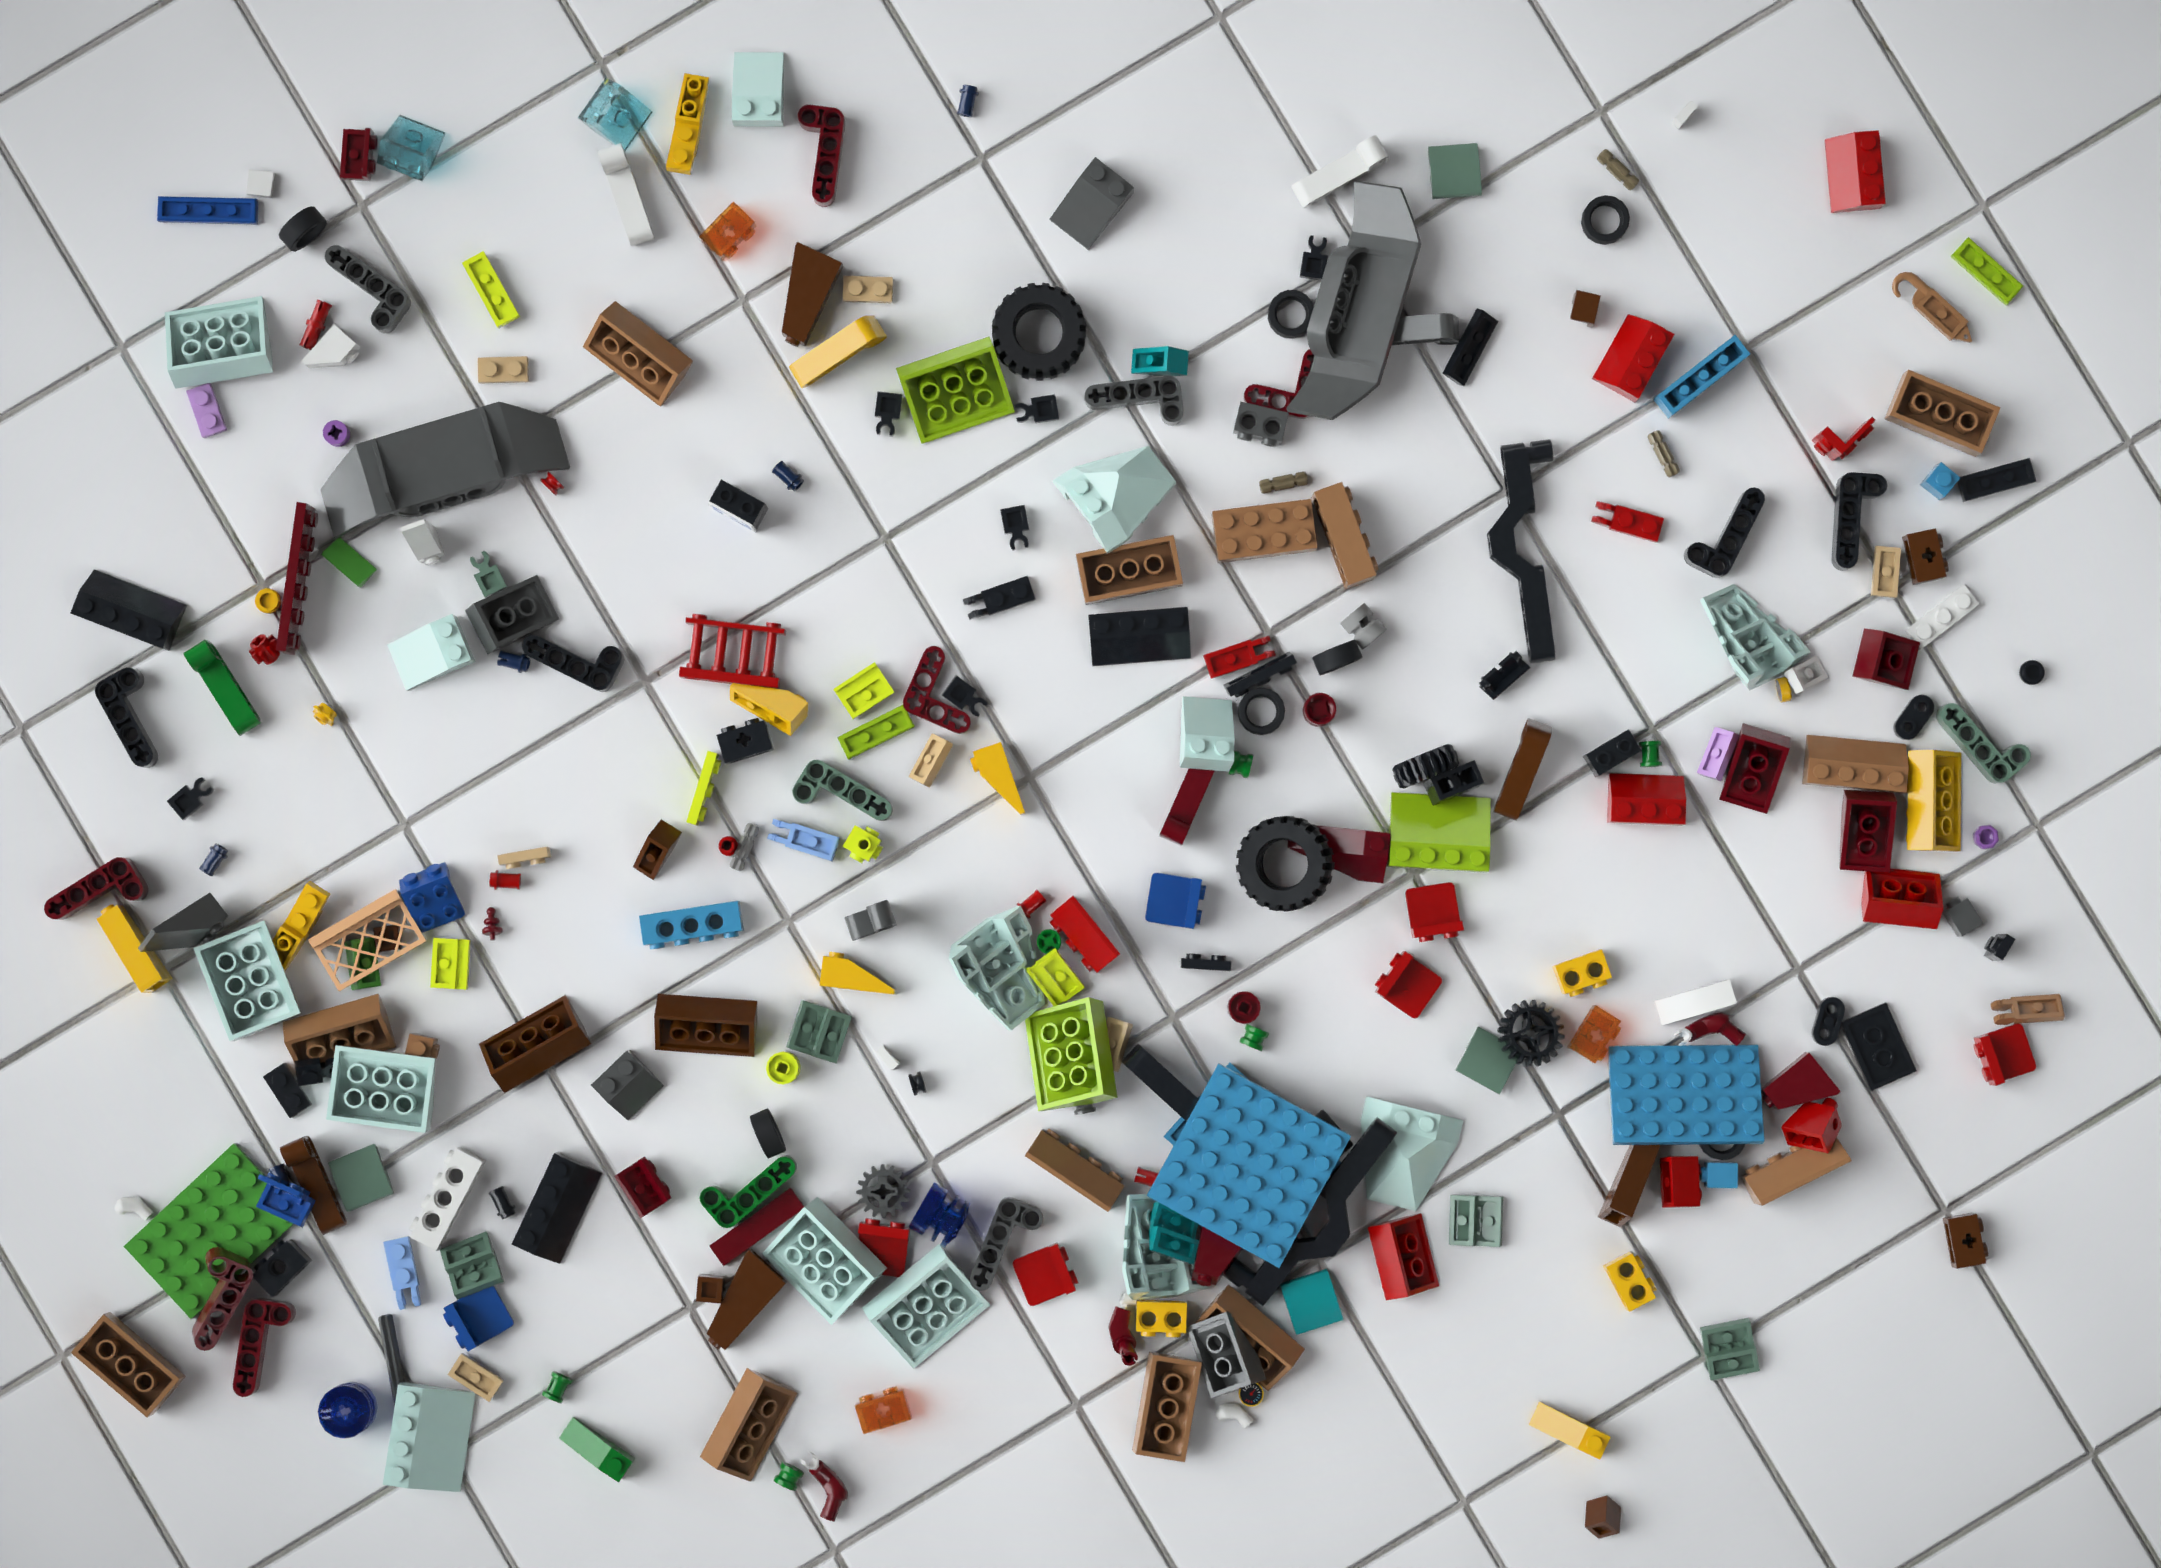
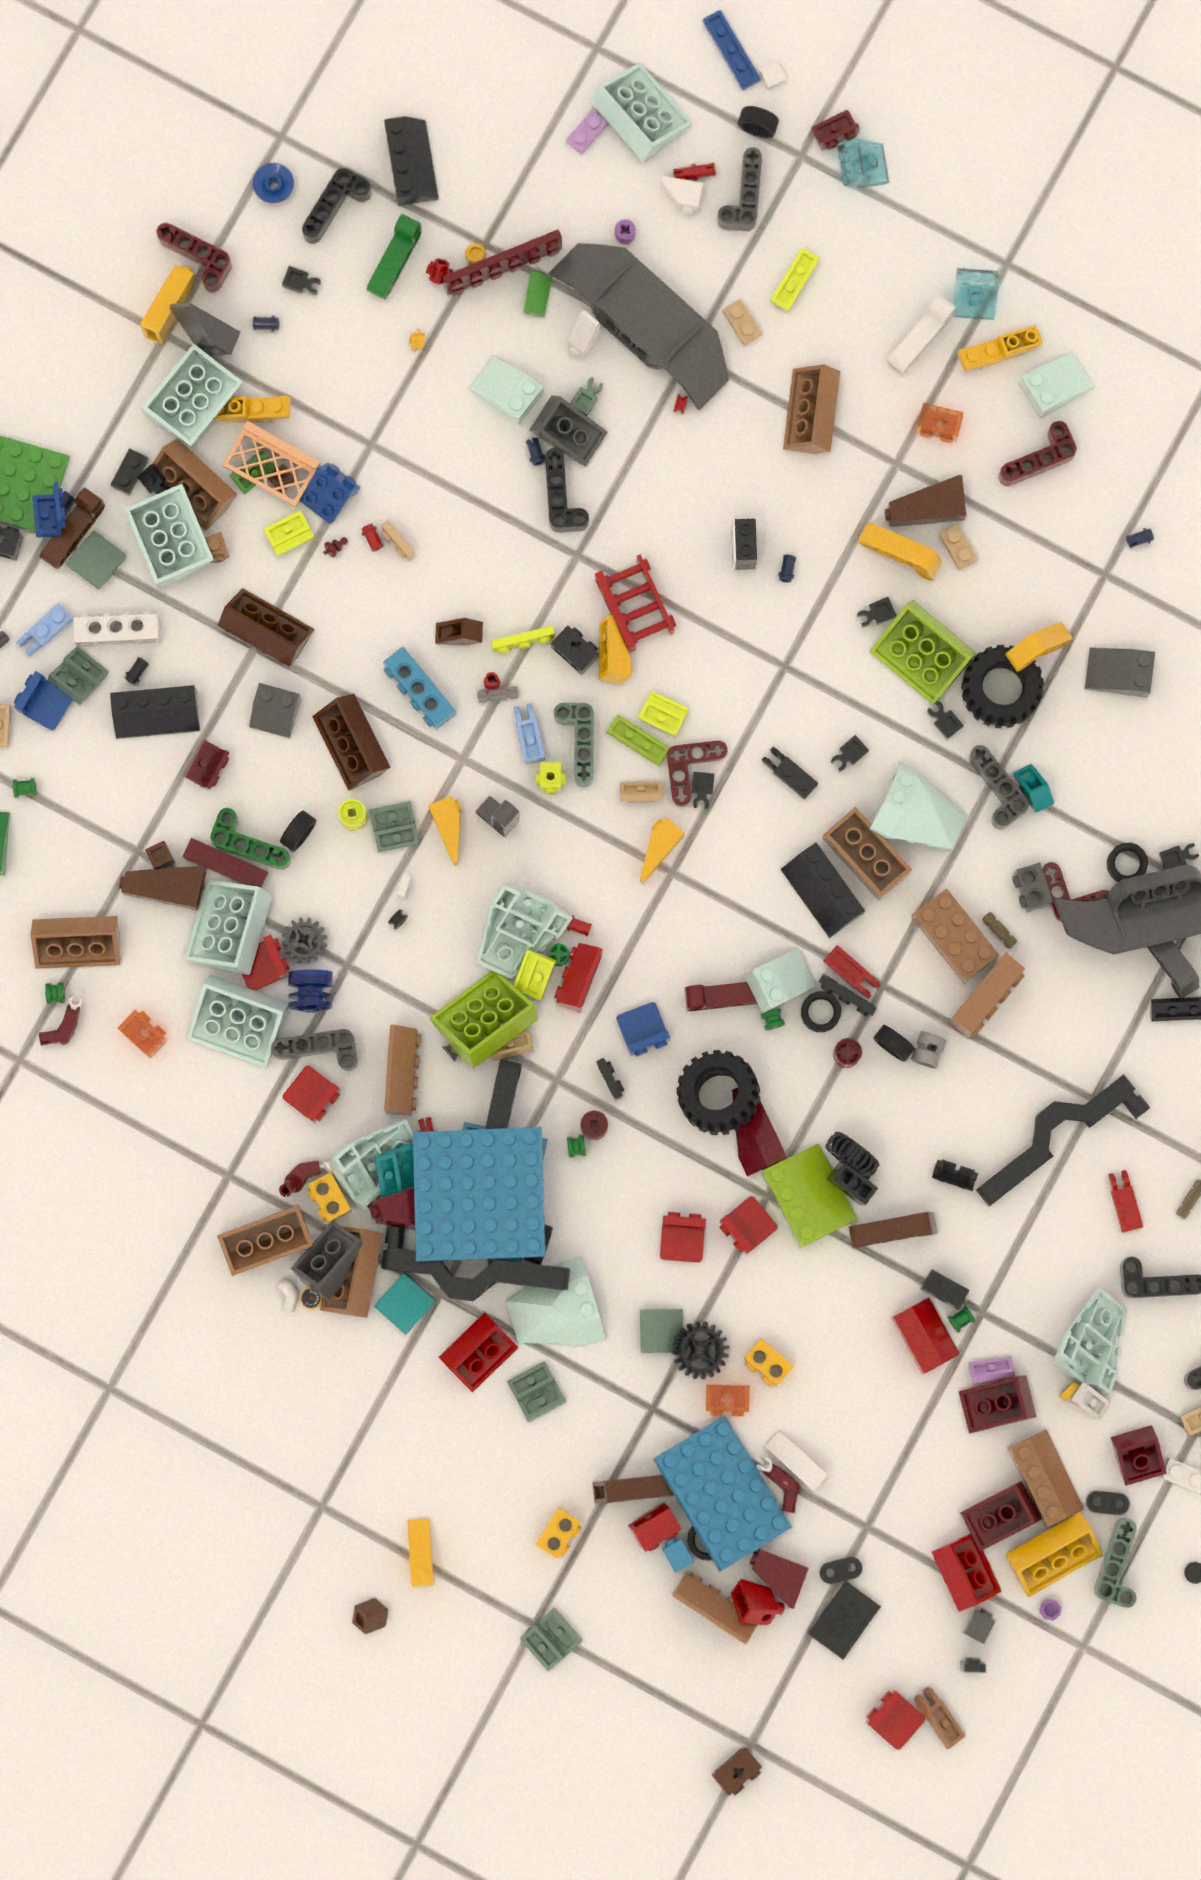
camera: 60 degrees right, 5 degrees down
(56, 766) = (270, 174): none -> blue dish
(1021, 270) = (1038, 644): none -> yellow beam

